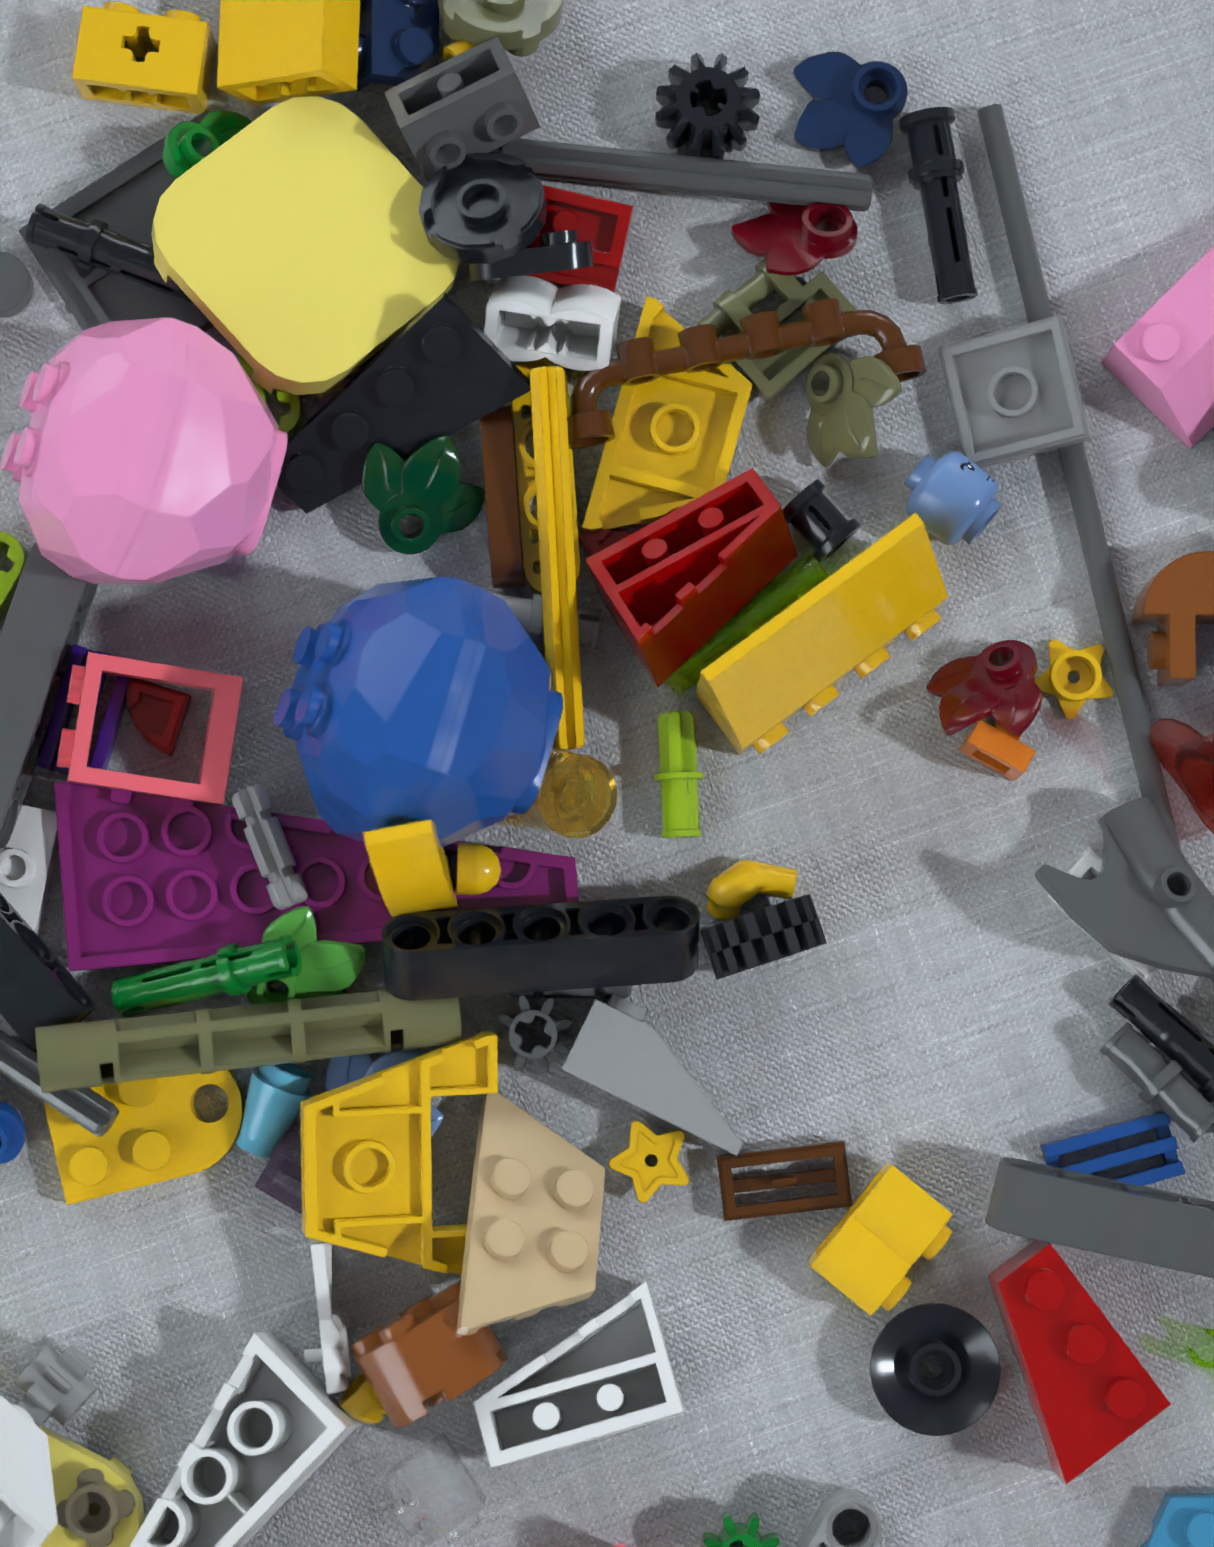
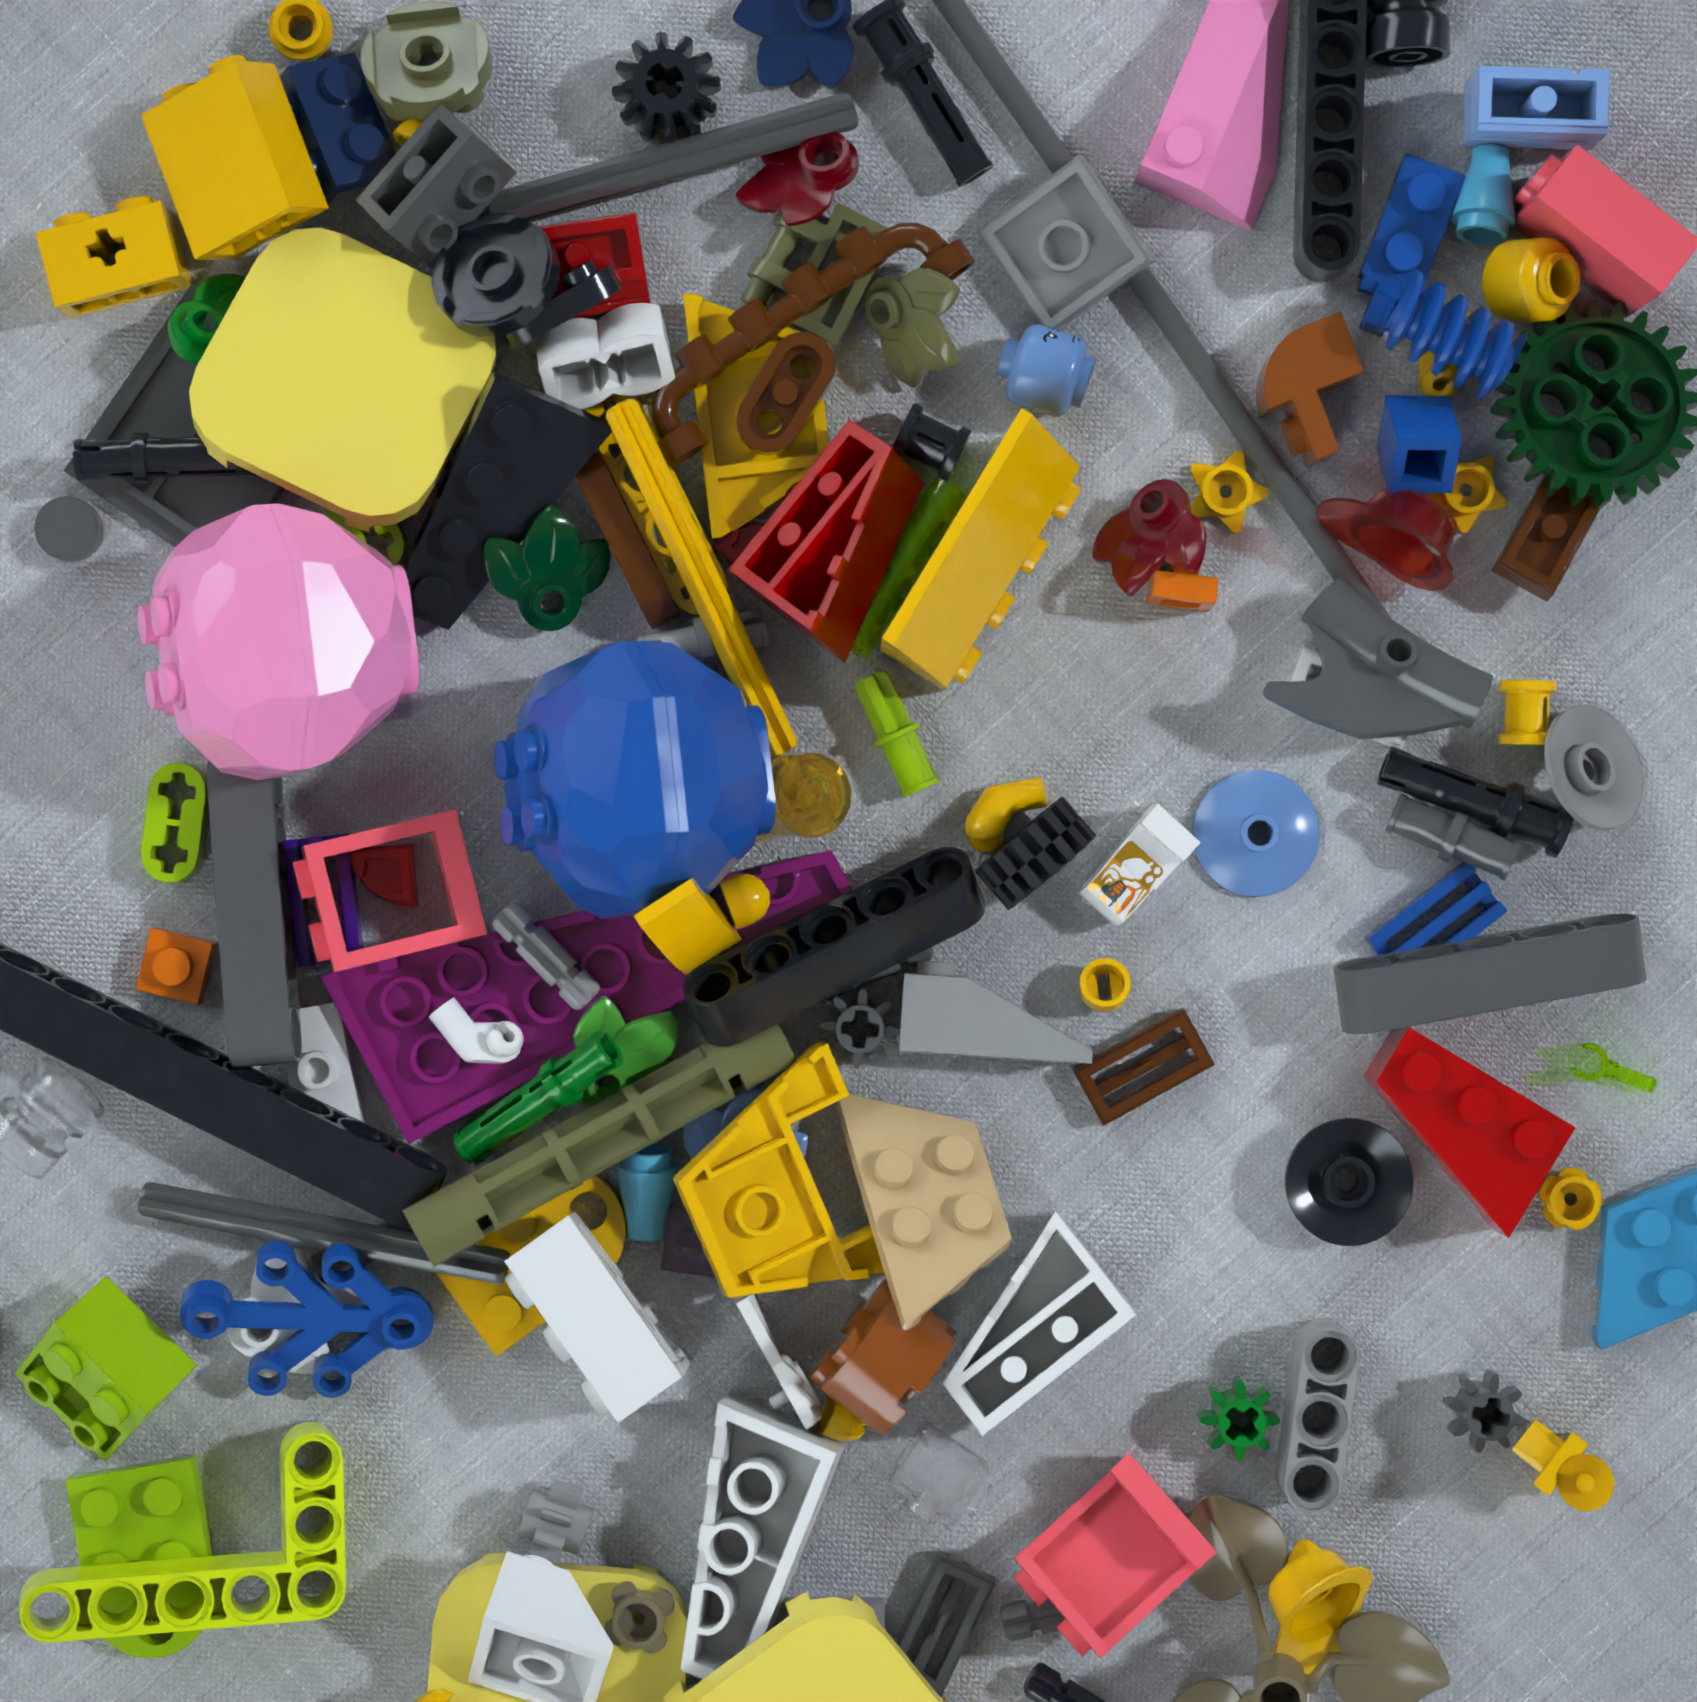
camera: 25 degrees left, 5 degrees up
(171, 1203) = (594, 1318): none -> white wedge
(172, 900) = (477, 1040): none -> white arm
(641, 1144) = (1019, 1115): yellow plate -> none
(702, 423) = (785, 395): none -> reddish brown plate
(792, 1092) = (1118, 985): none -> yellow hinge
(855, 988) = (1138, 864): none -> white leg
(881, 1240) = (1254, 1085): yellow brick -> none
(944, 1012) = (1223, 827): none -> medium blue dish
(1156, 1473) = (1585, 1207): none -> yellow plate

